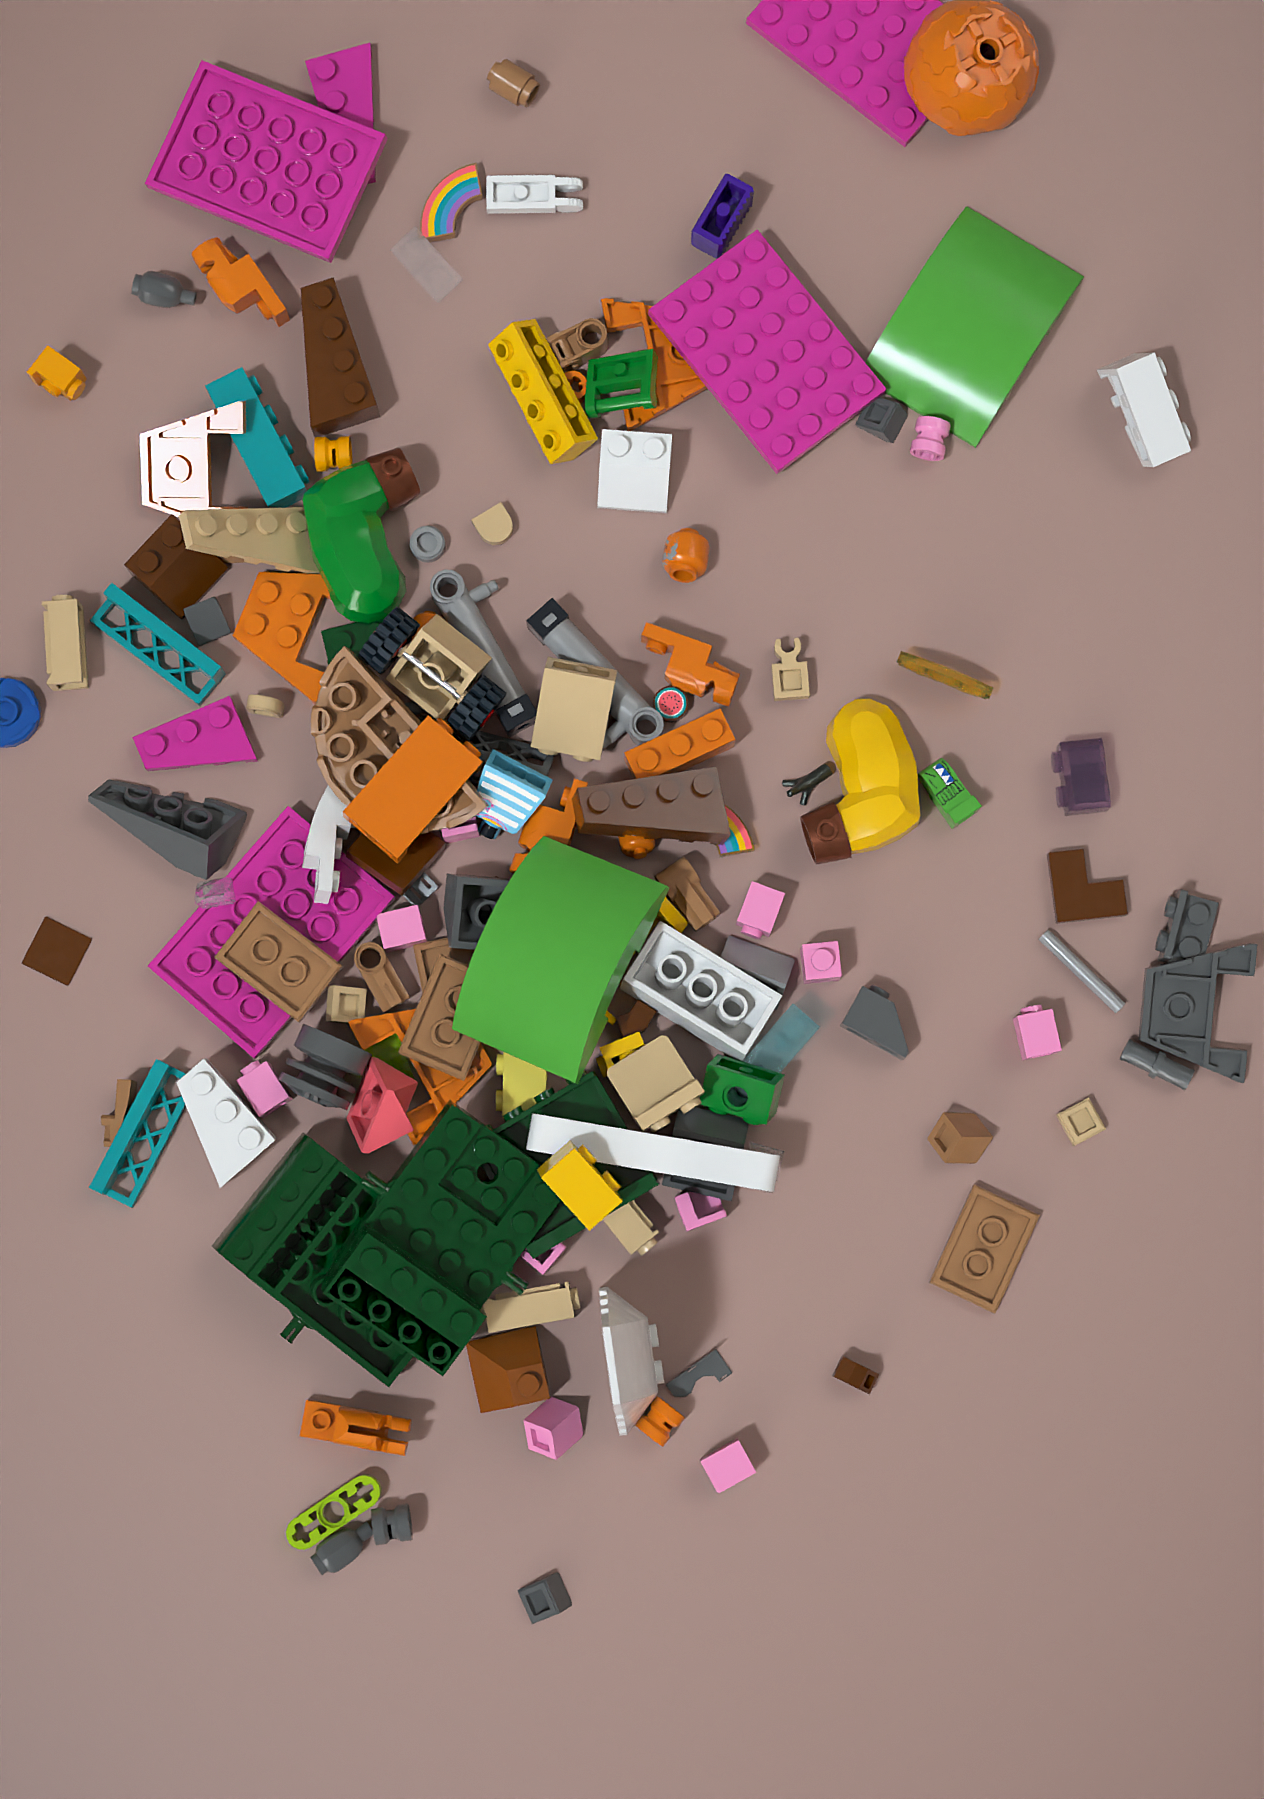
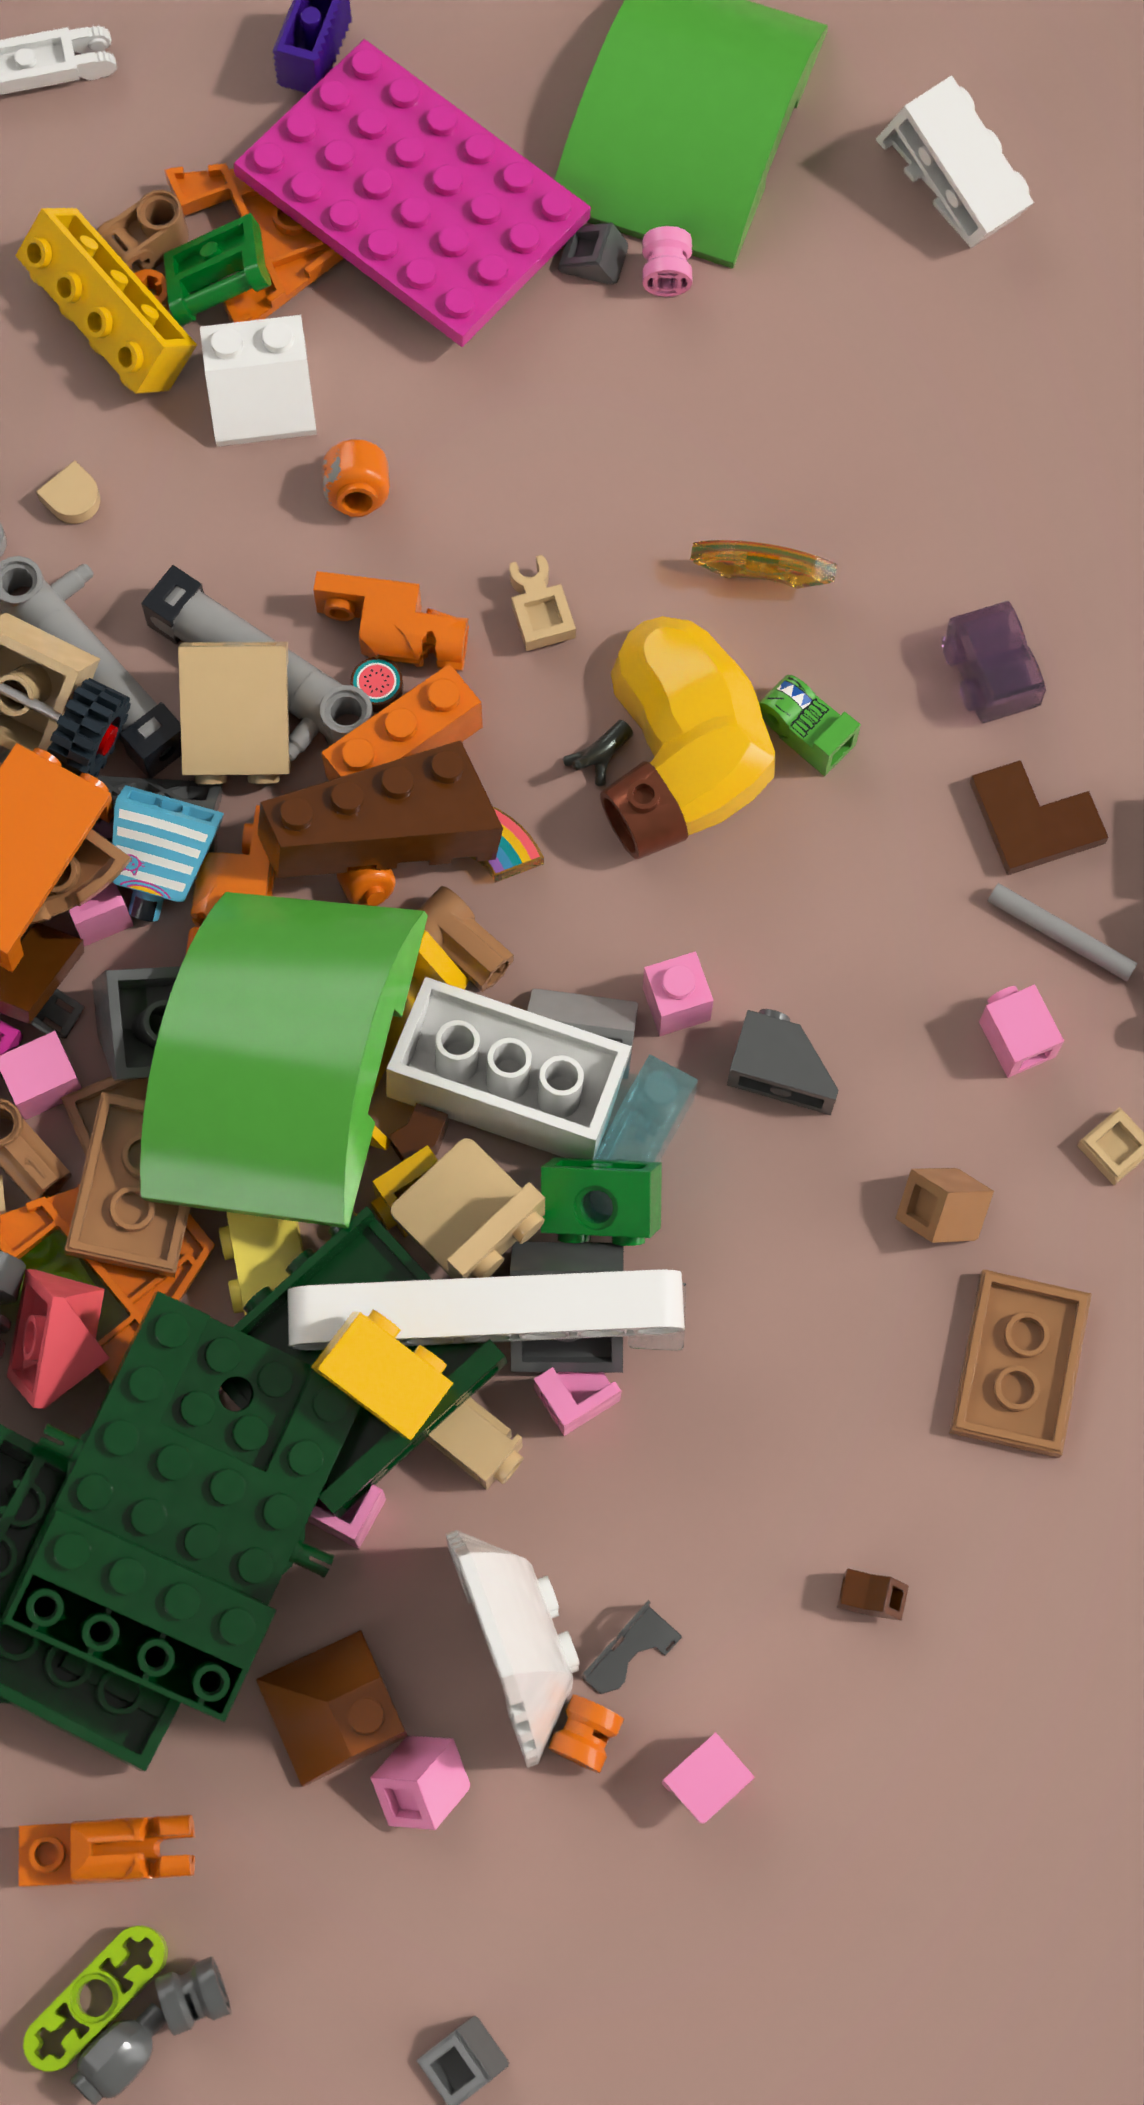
camera: 15 degrees left, 10 degrees down
(531, 1307) = (347, 1599): tan window -> none
(759, 910) = (570, 939): bright pink brick -> none

